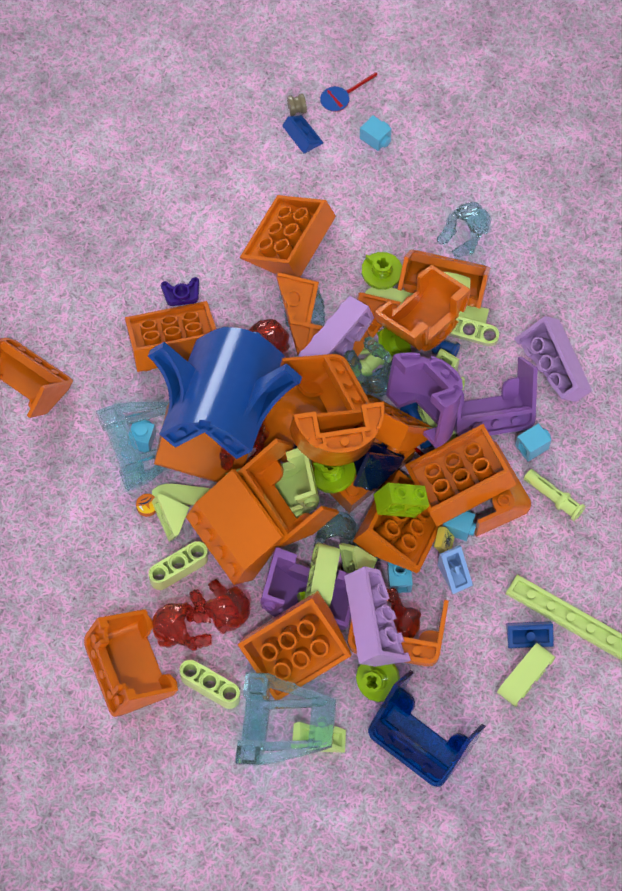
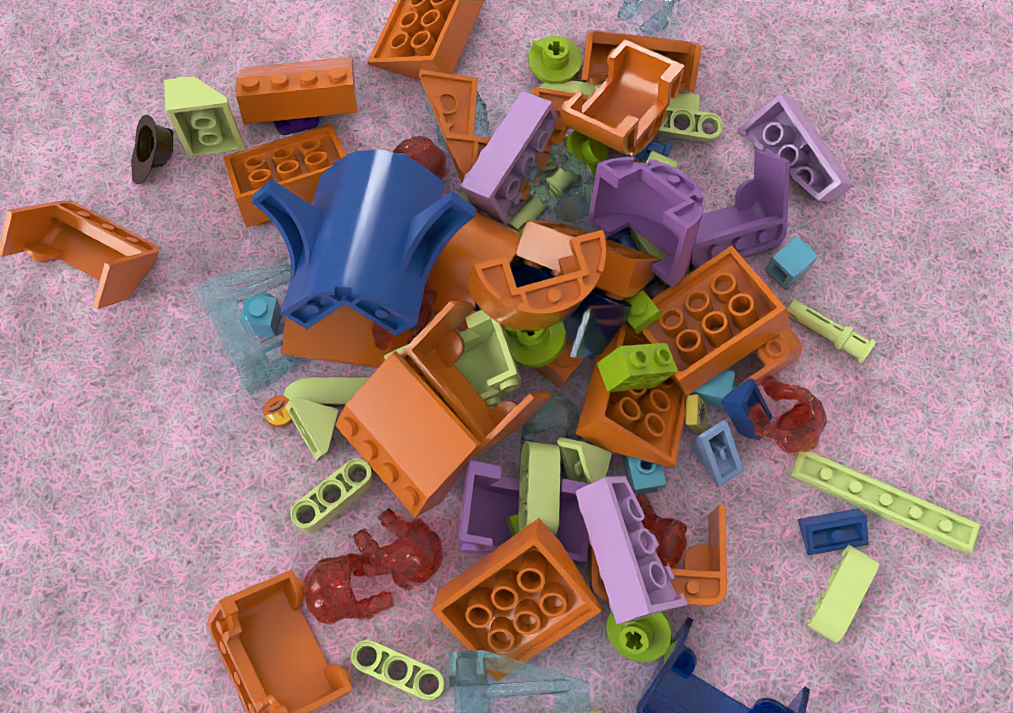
camera: 10 degrees left, 5 degrees up
(73, 306) = (151, 148): none -> dark brown piece
(115, 289) = (201, 117): none -> yellowish green slope
(185, 273) = (296, 90): none -> orange slope
(335, 384) = (525, 218): orange windscreen -> none
(412, 463) = (643, 312): none -> lime plate
(480, 541) = (738, 405): none -> blue slope
(514, 560) = (798, 427): none -> clear red hair

